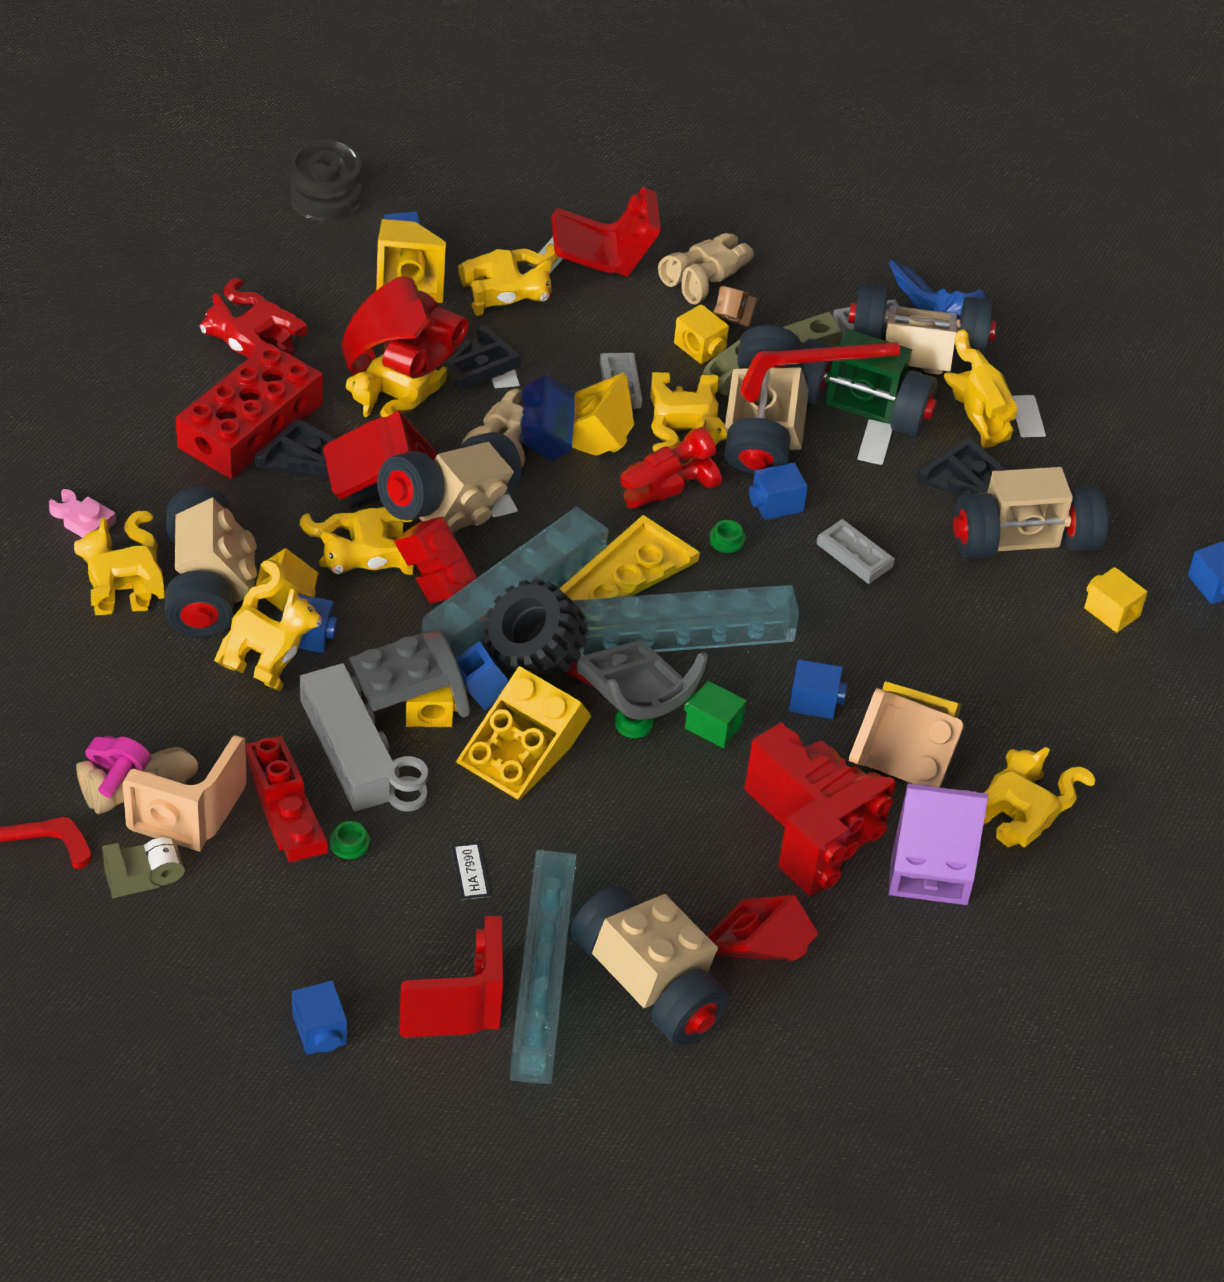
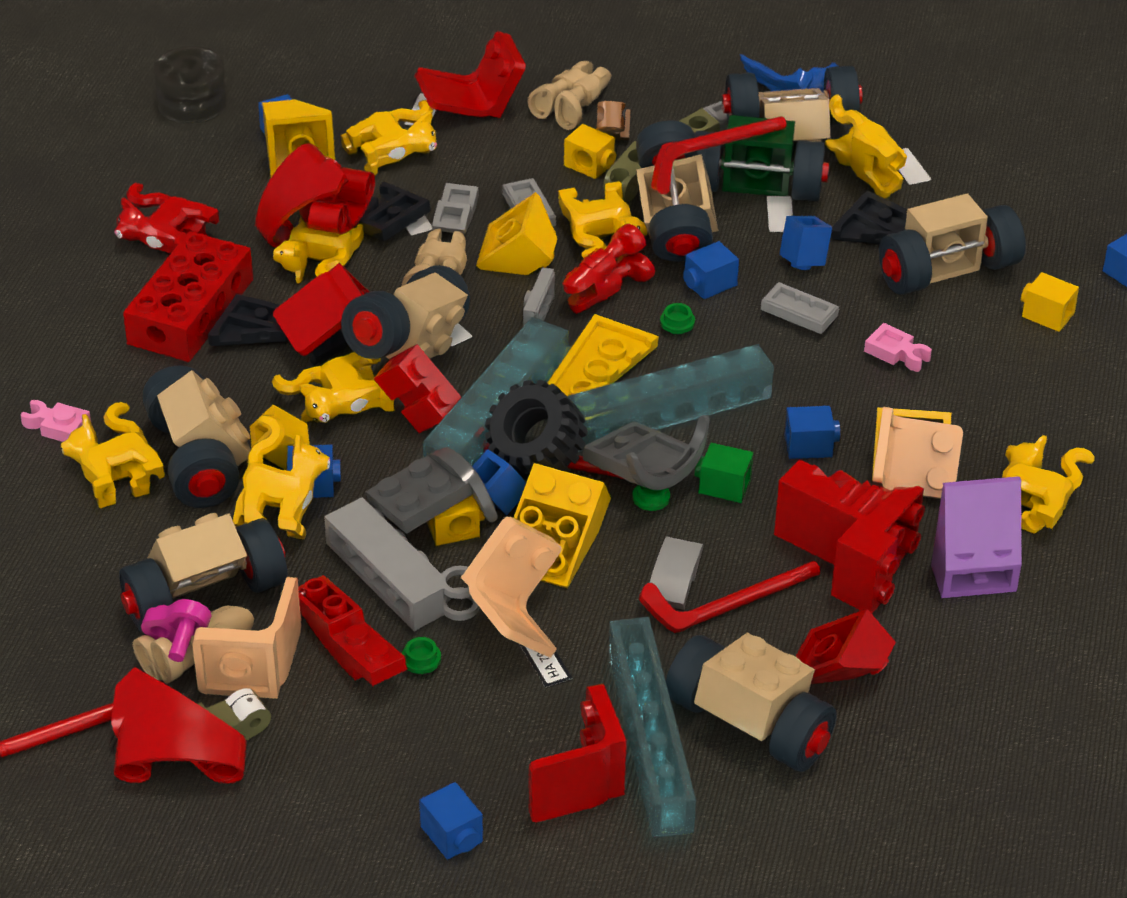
camera: 10 degrees left, 5 degrees down
(80, 863) = (167, 726): none -> red panel
(166, 693) = (201, 557): none -> brick
(450, 782) = (505, 577): none -> light nougat piece
(548, 417) = (477, 246): clear blue brick -> none
(550, 360) = (455, 208): none -> light grey slope
(595, 486) = (540, 298): none -> light grey plate
(617, 861) = (679, 621): none -> red piece
(627, 808) = (676, 570): none -> light grey slope
(884, 480) = (805, 241): none -> blue brick
(937, 612) = (895, 345): none -> bright pink plate

